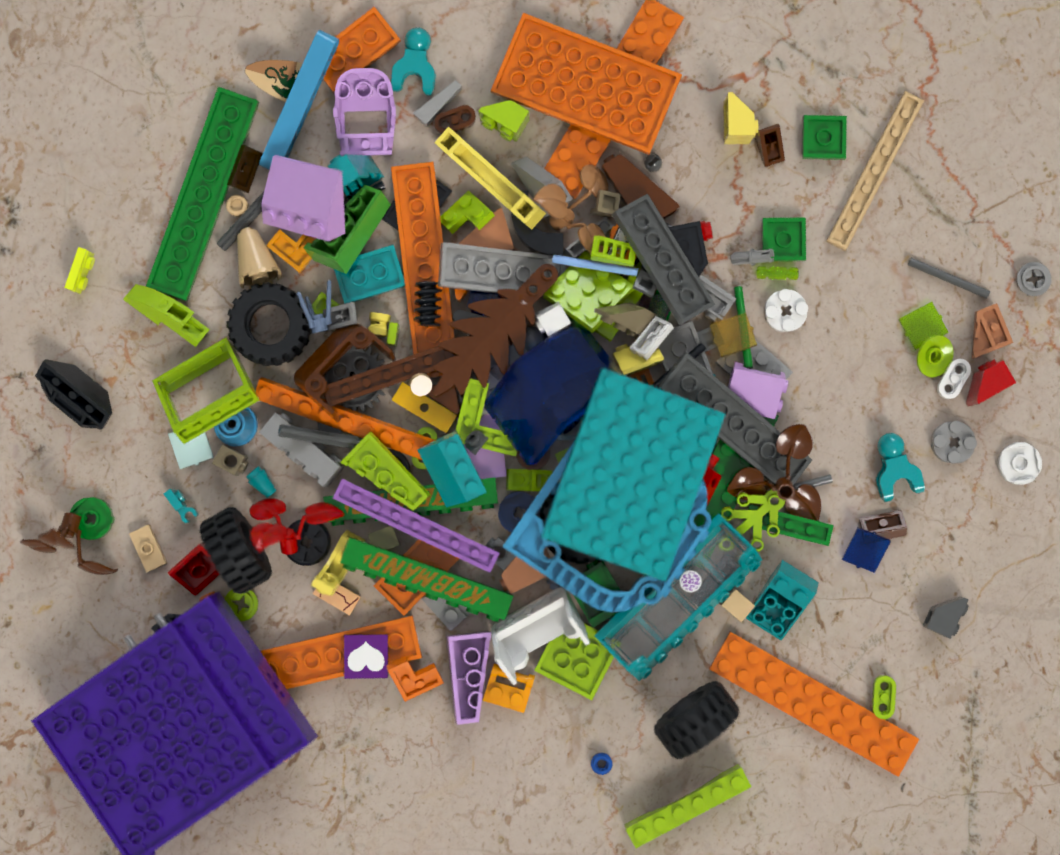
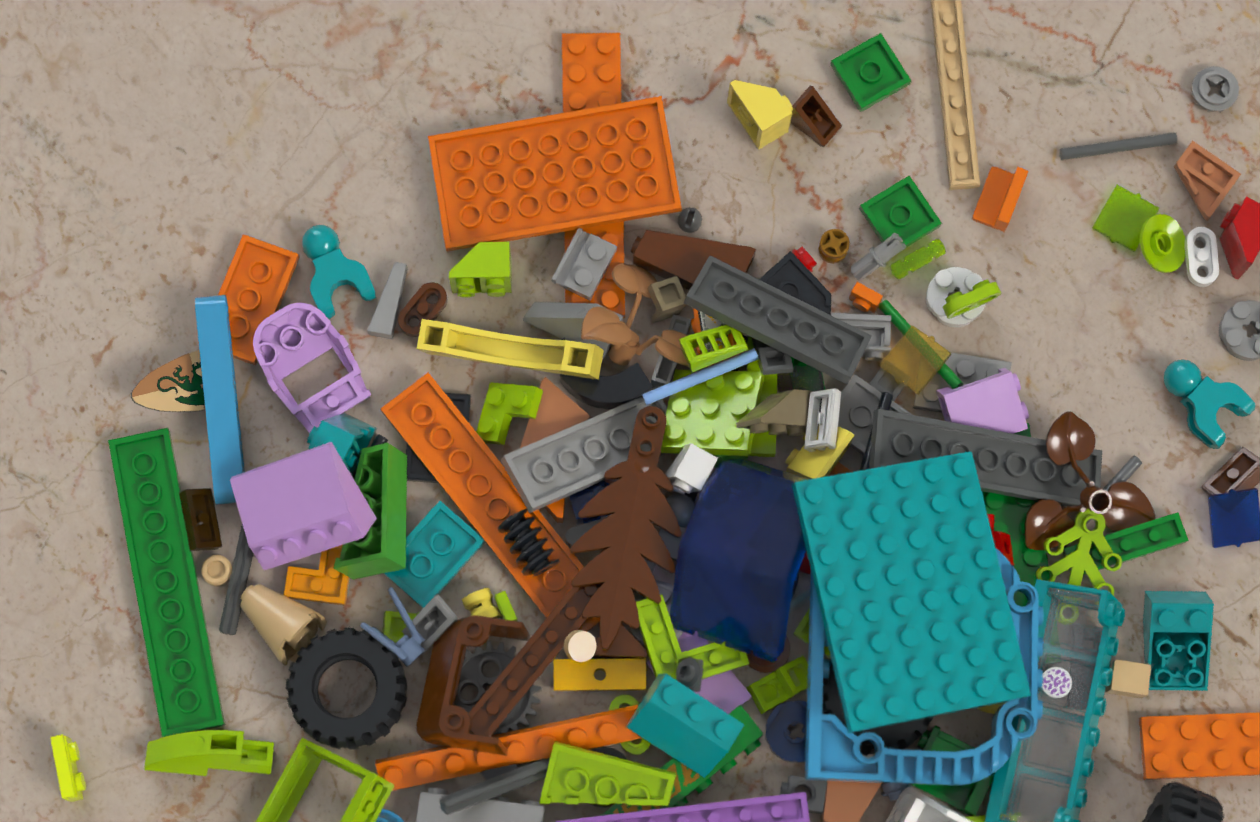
camera: 40 degrees left, 10 degrees down
(569, 151) = (584, 264): none -> light grey plate
(728, 278) = (865, 298): none -> orange plate
(731, 229) = (836, 240): none -> pearl gold wheel
(782, 316) = (982, 293): none -> lime plate
(852, 265) = (999, 197): none -> orange panel

